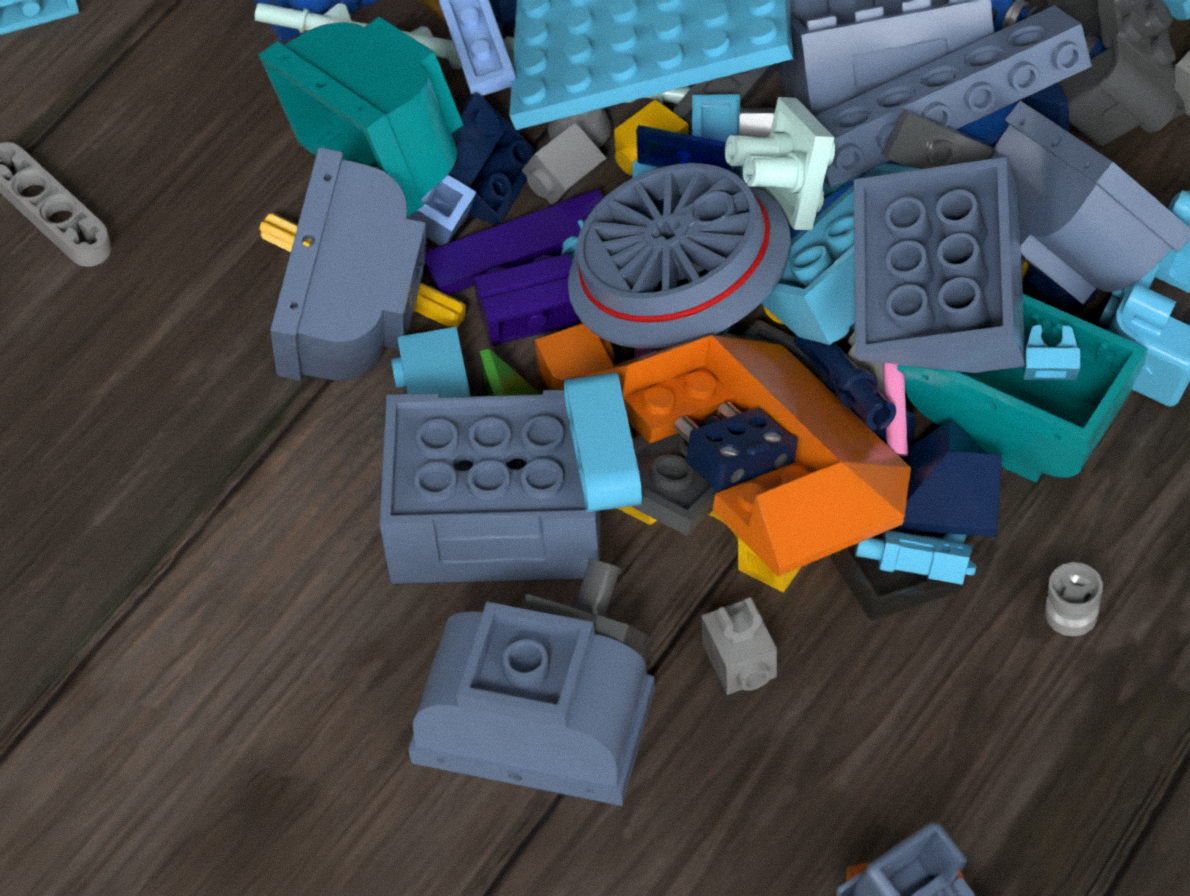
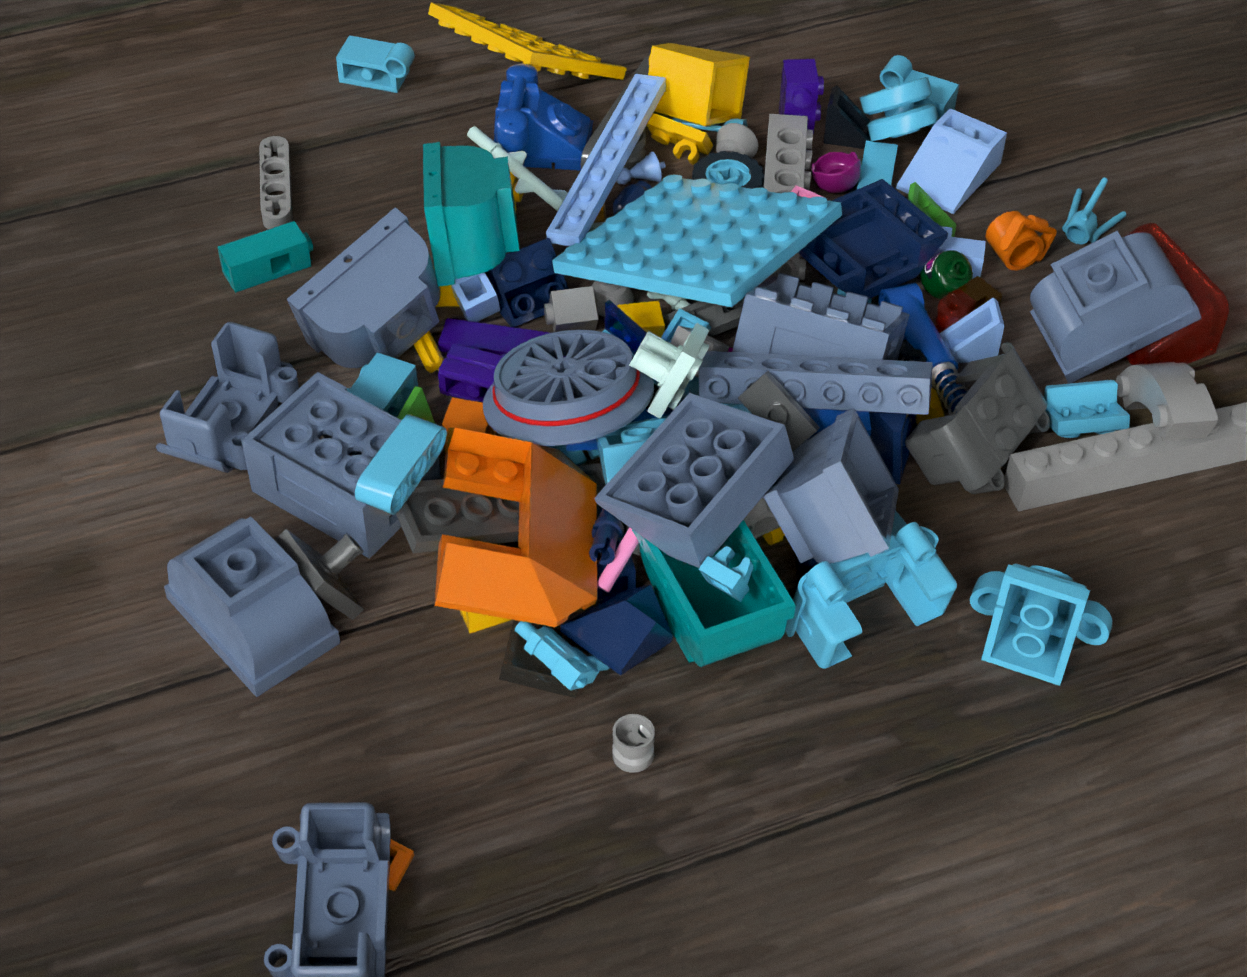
camera: 30 degrees right, 5 degrees down
(132, 300) = (265, 256): none -> teal brick
(277, 492) = (229, 405): none -> sand blue container
(736, 446) = (488, 517): dark blue piece -> none
(739, 646) = (403, 644): light grey brick -> none

